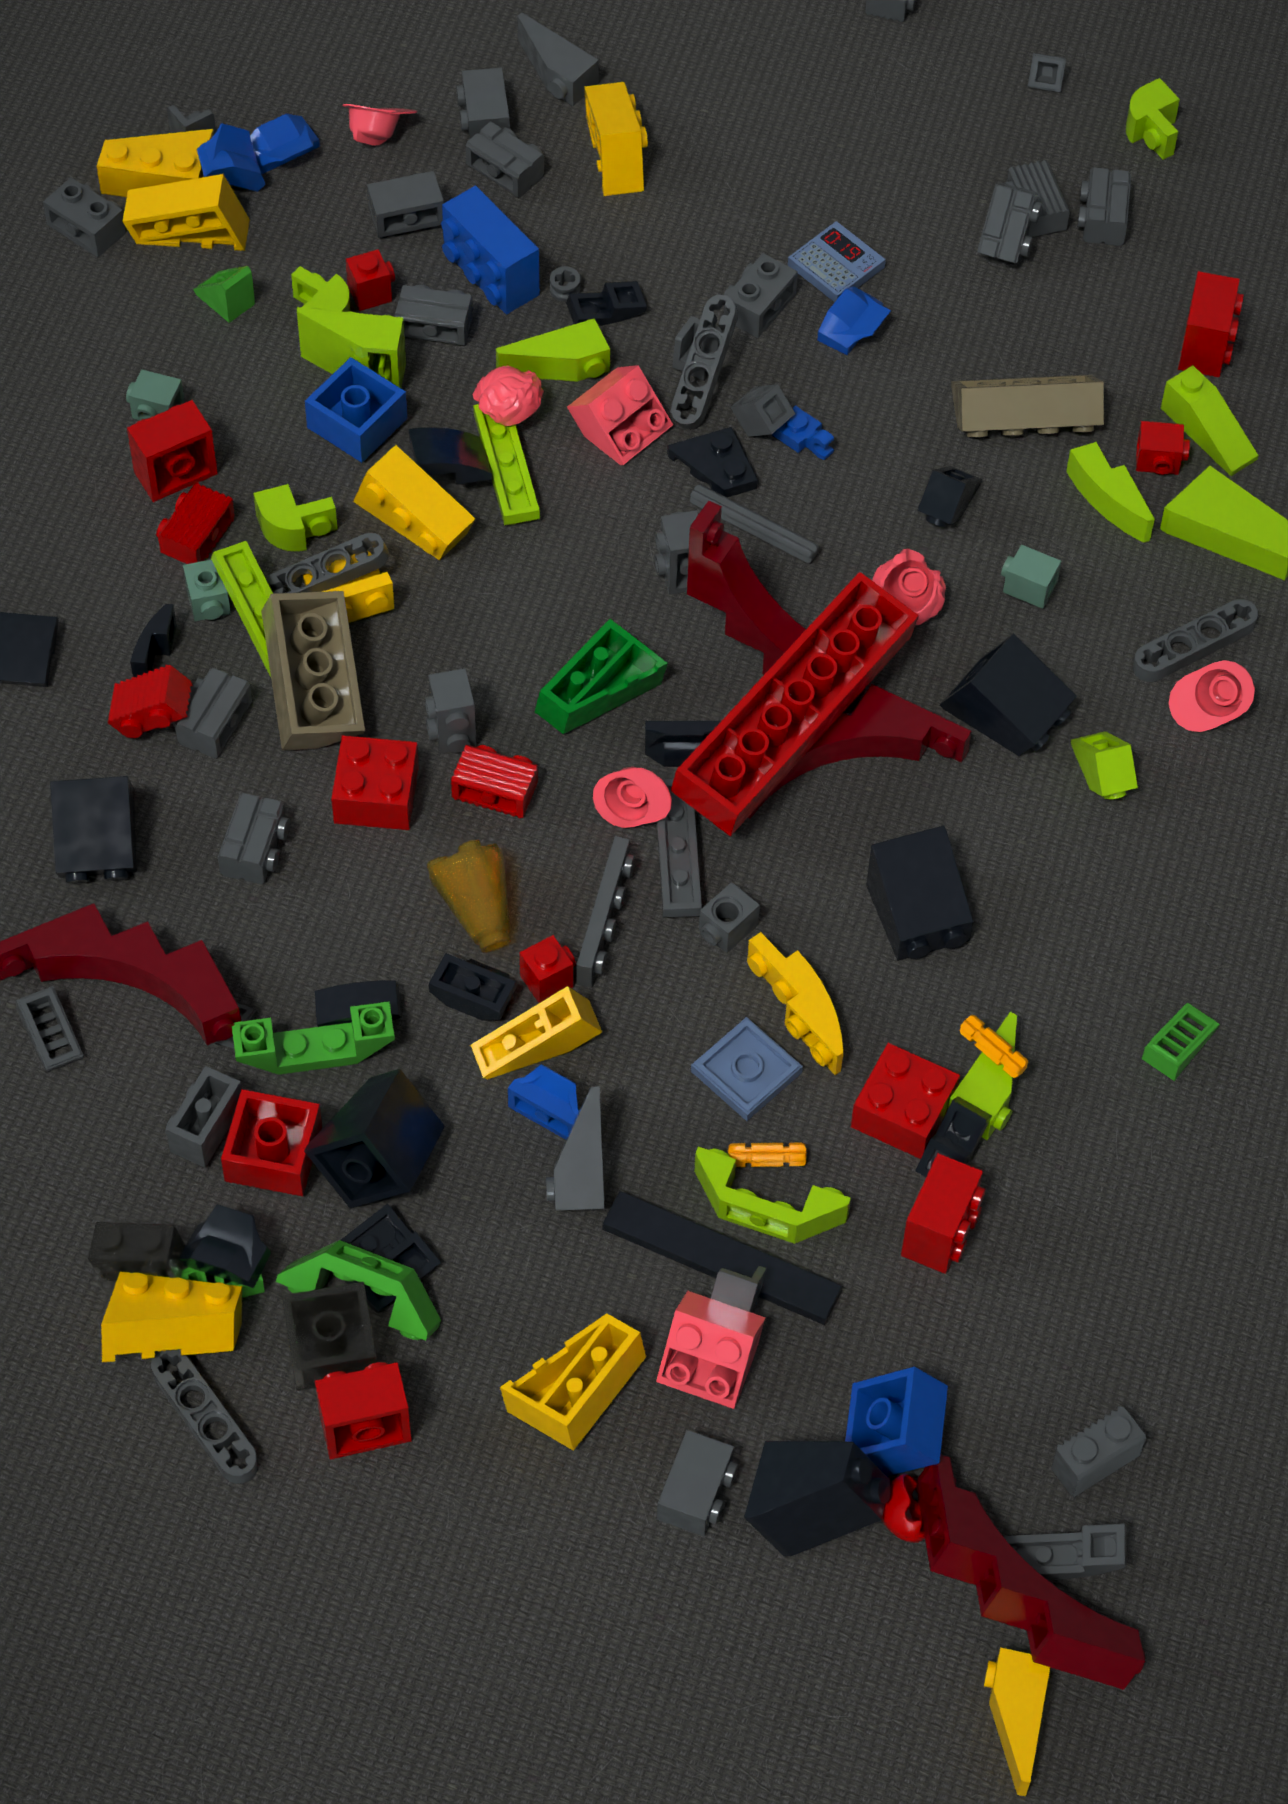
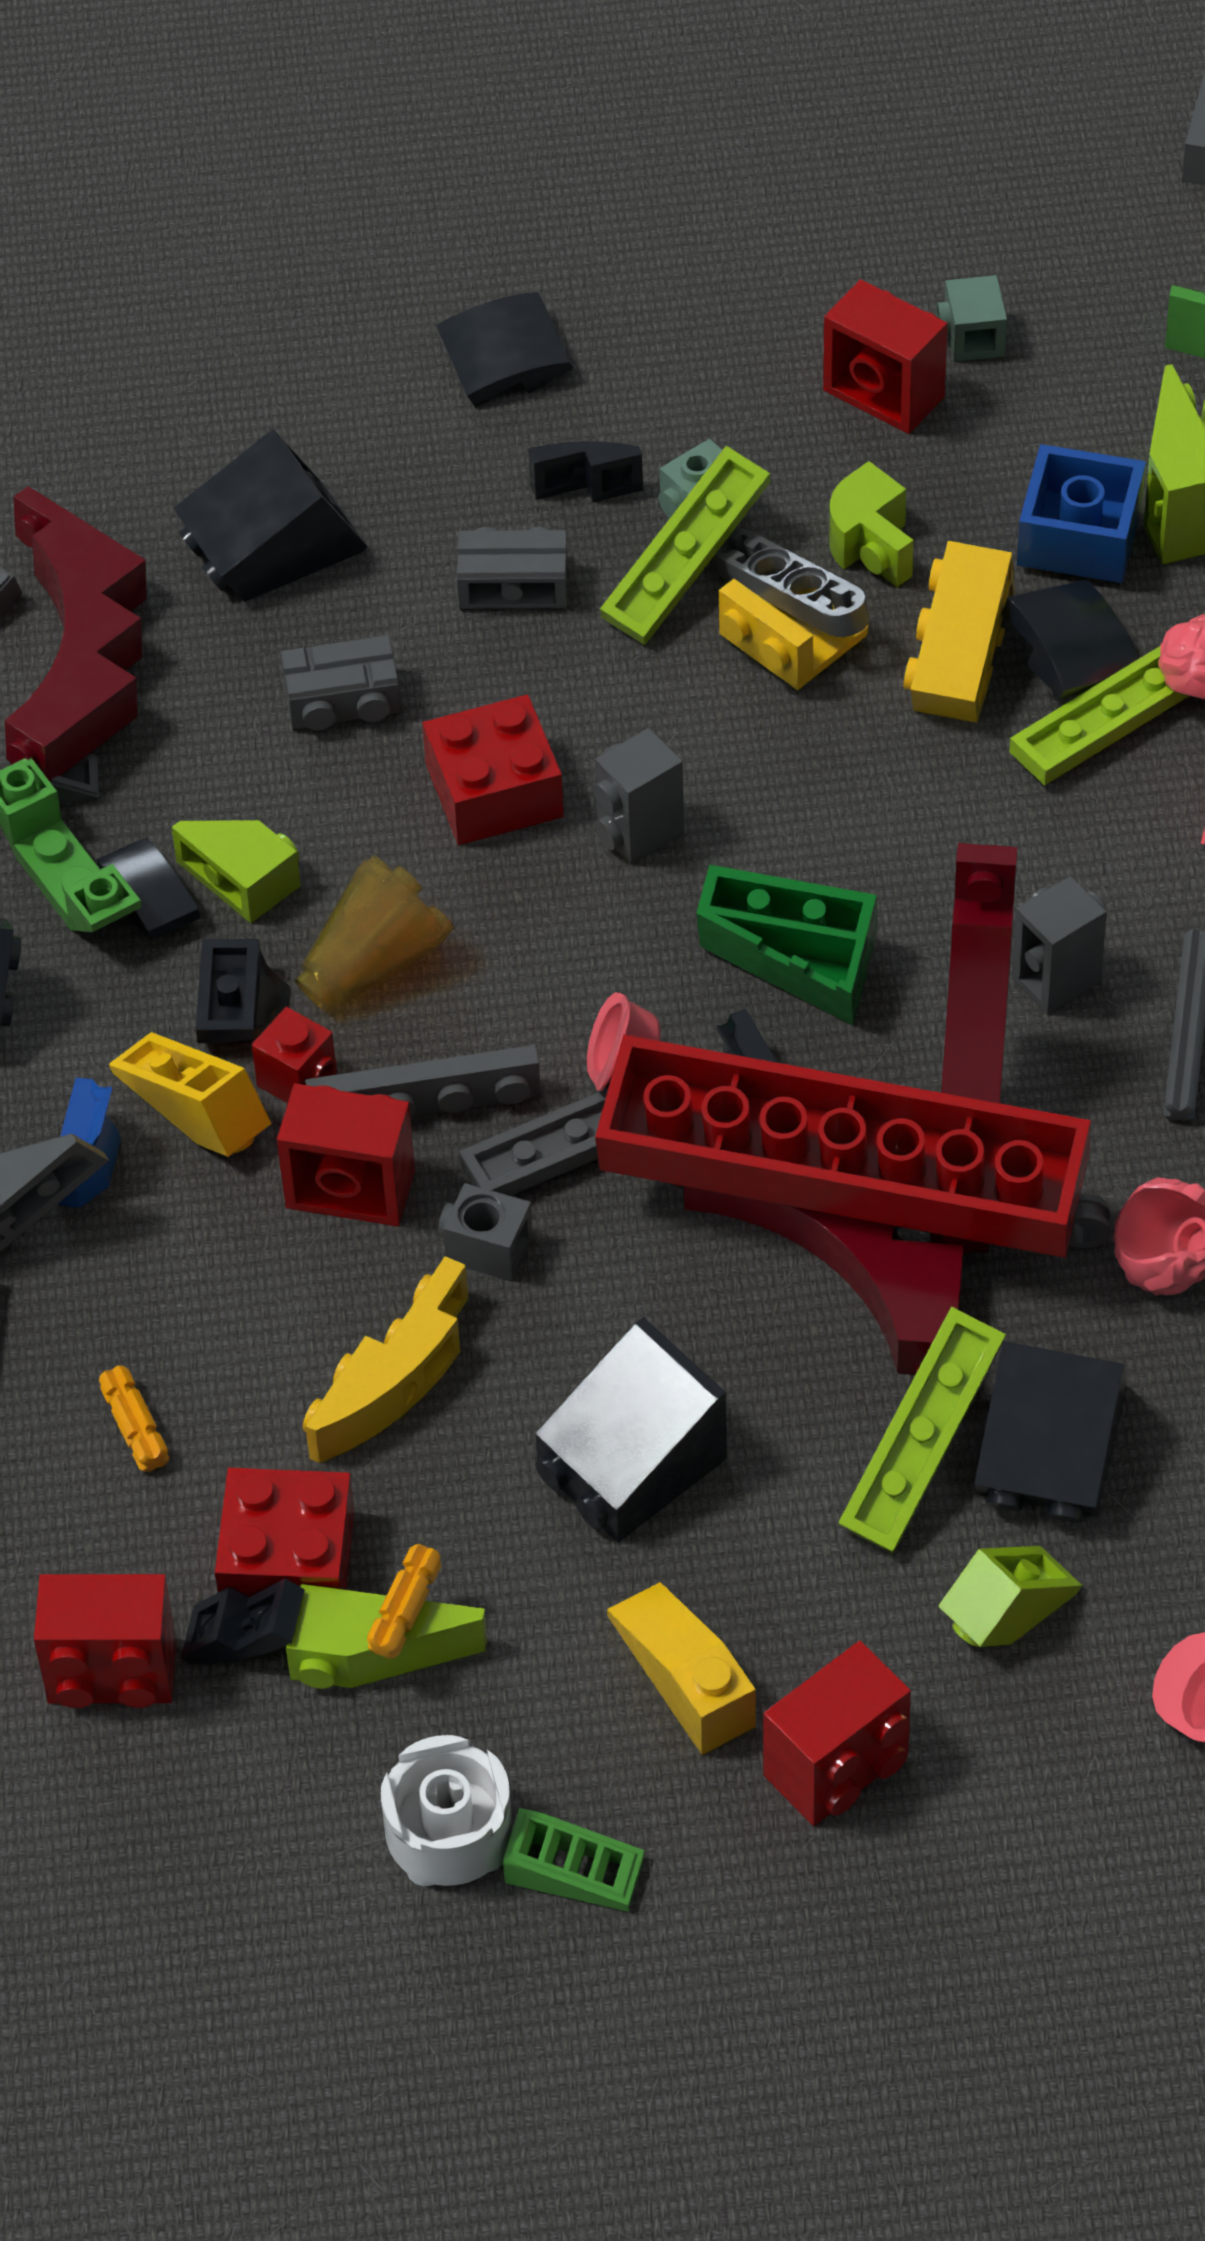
camera: 70 degrees right, 5 degrees down
(149, 701) = (475, 490): red brick -> none
(196, 524) = (798, 436): red brick -> none
(312, 669) = (612, 619): dark tan slope -> none
(369, 946) = (239, 862): none -> lime slope
(494, 780) = (571, 893): red brick -> none
(645, 962) = (346, 1154): none -> red brick
(746, 1069) = (263, 1348): sand blue tile -> none
(822, 1211) = (53, 1374): lime slope -> none
(990, 752) = (922, 1430): none -> lime plate
(1077, 933) = (687, 1666): none -> yellow slope
(1132, 1083) = (446, 1811): none -> white brick
(1172, 872) = (837, 1734): none -> red brick

